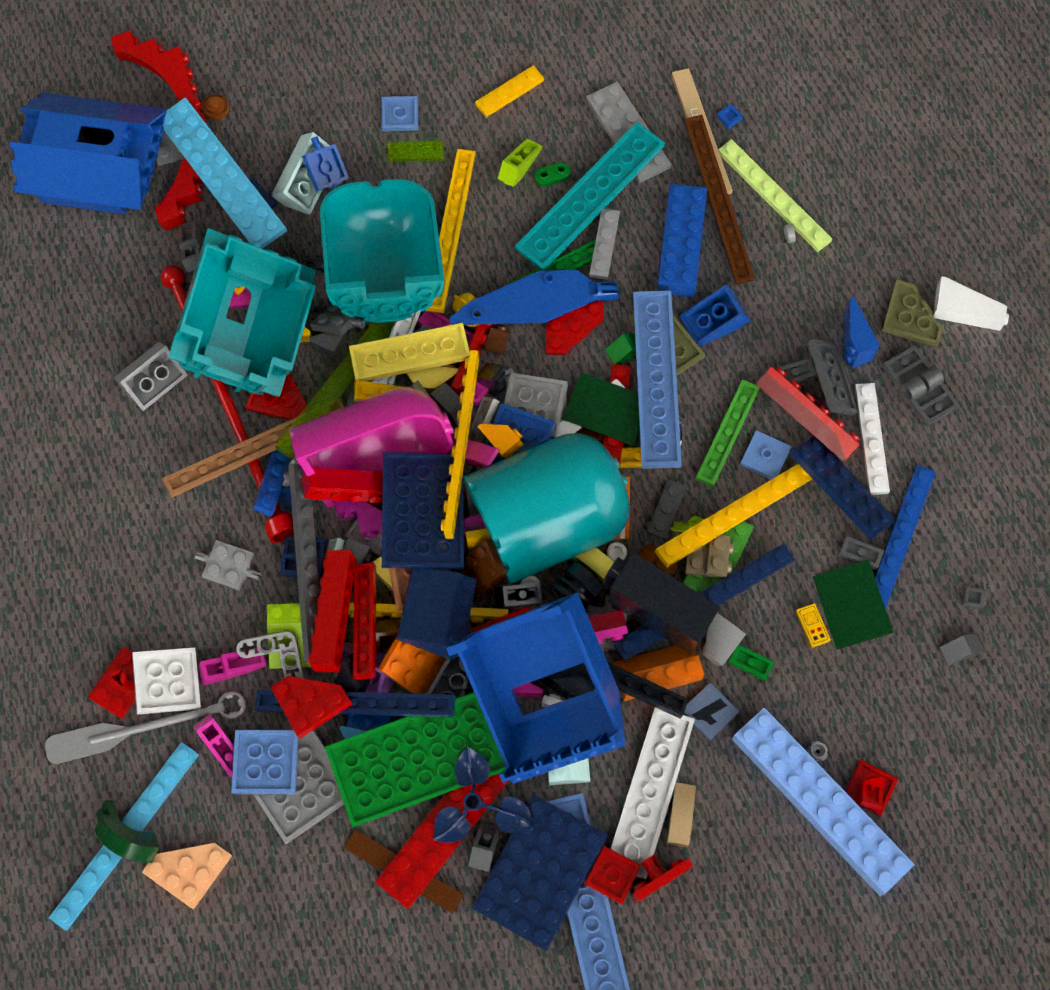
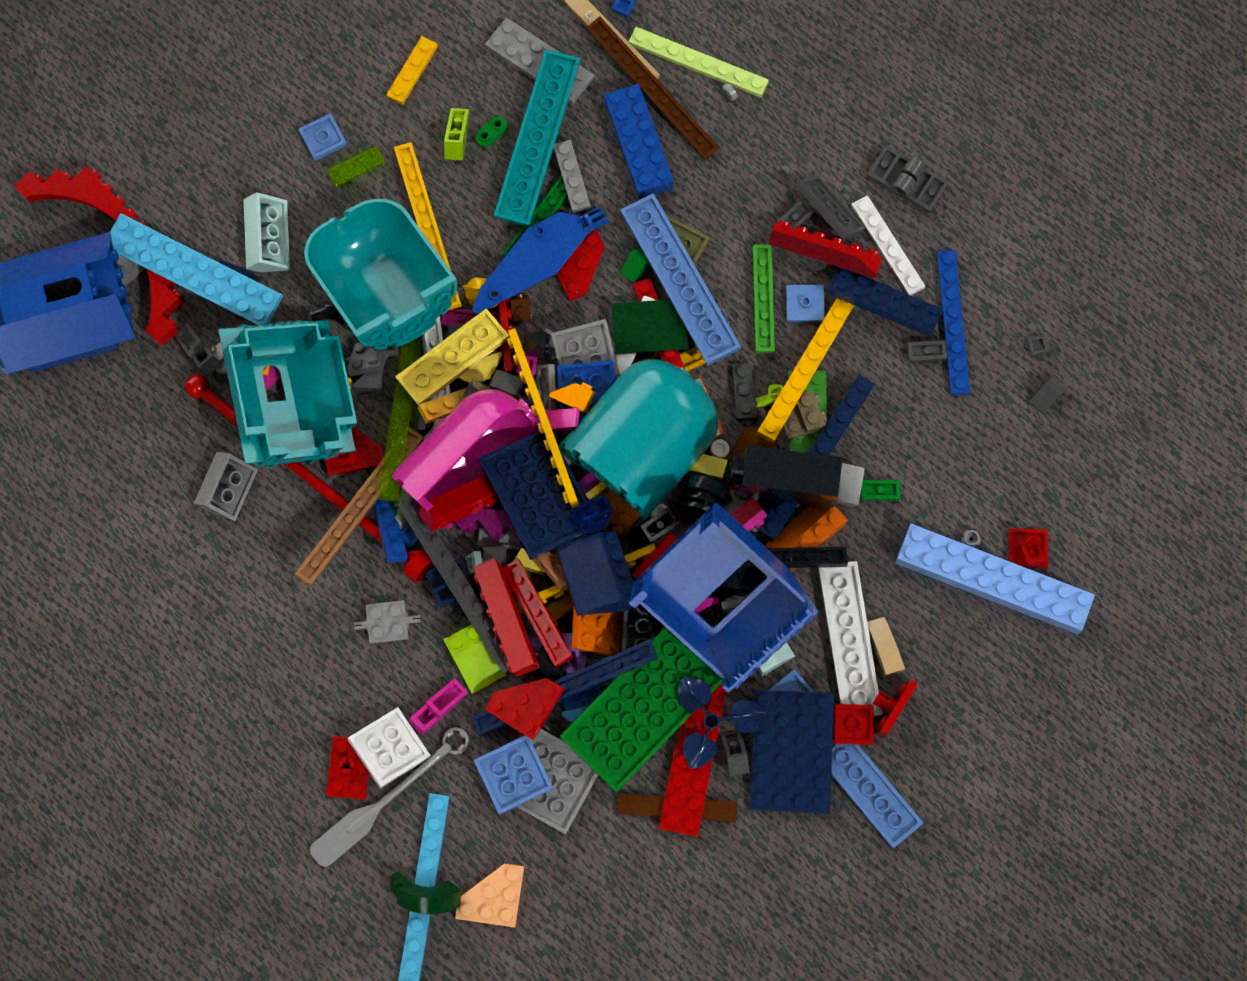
camera: 25 degrees left, 5 degrees up
(215, 107) = (148, 208): dark orange plate -> none
(217, 742) = (462, 778): dark pink slope -> none
(283, 650) = (479, 671): light grey beam -> none
(325, 166) = (283, 219): blue plate -> none
(460, 553) = (593, 514): none -> clear blue slope
(710, 711) = (866, 548): sand blue tile -> none
(715, 316) = (701, 198): blue slope -> none
(813, 625) = (916, 433): yellow tile -> none
(852, 604) = (940, 399): dark green sticker -> none
(858, 339) = (834, 160): blue slope -> none
(911, 316) = (870, 120): olive plate -> none
(967, 306) = (909, 89): white slope -> none

